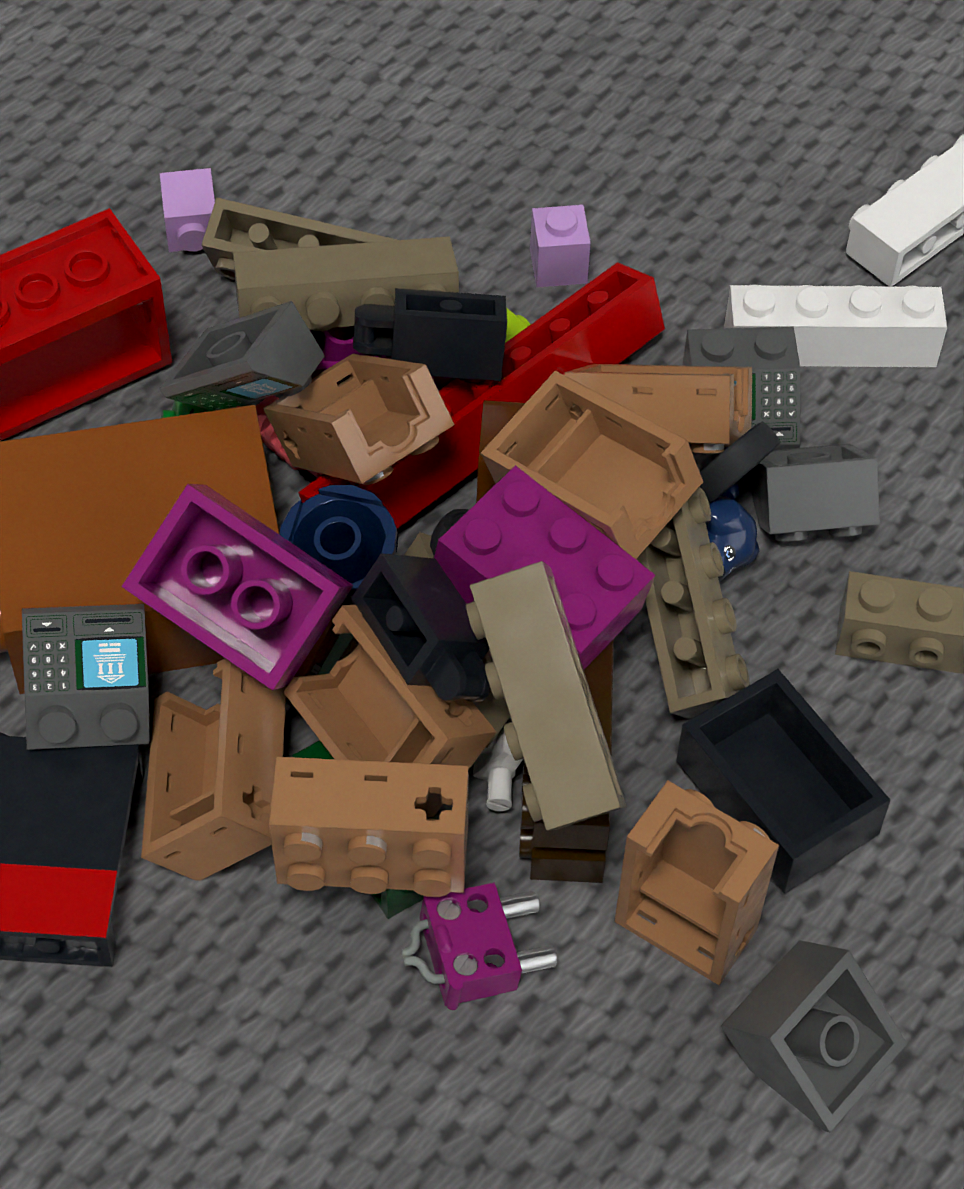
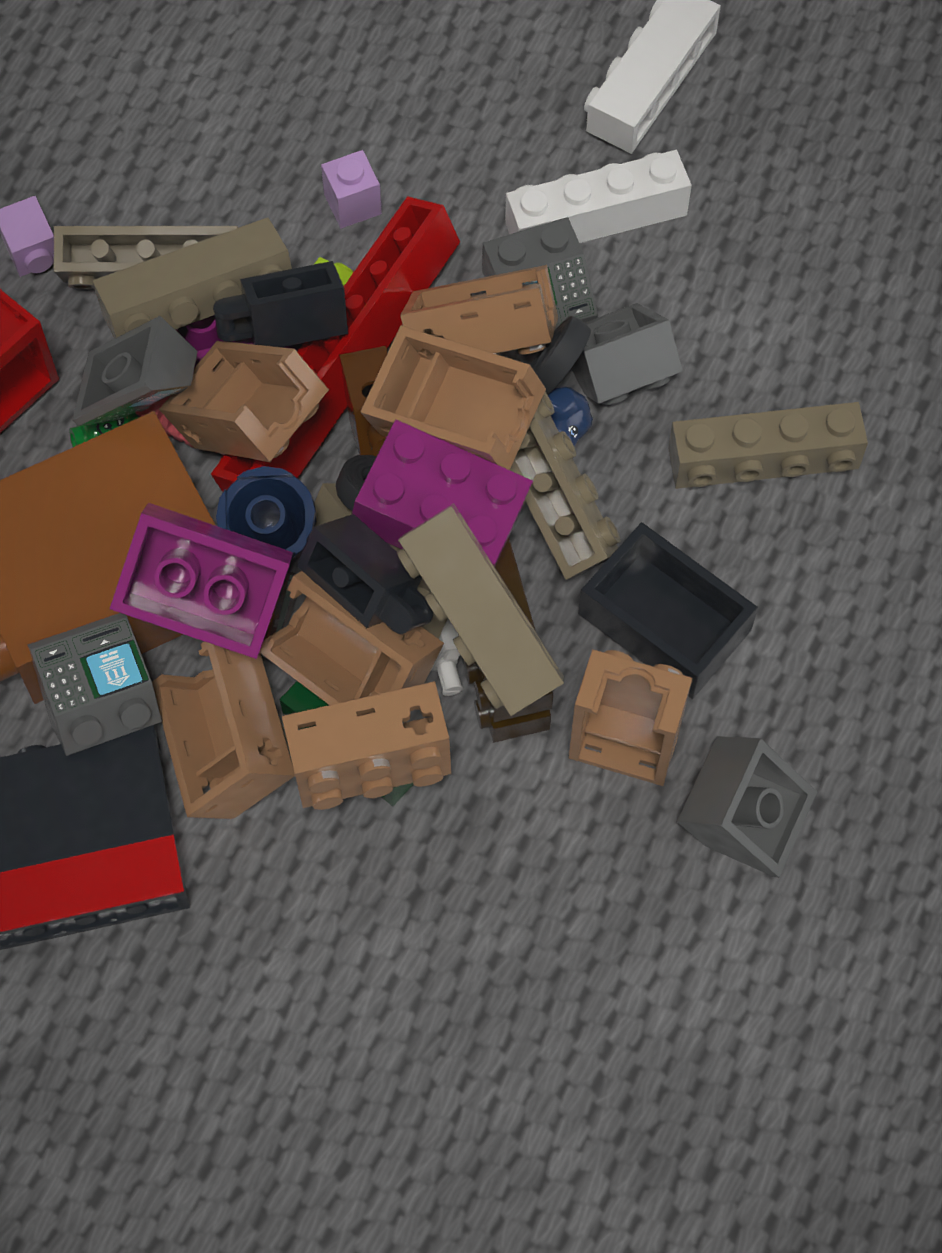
camera: 15 degrees left, 10 degrees up
(474, 943) = (463, 810): magenta piece -> none

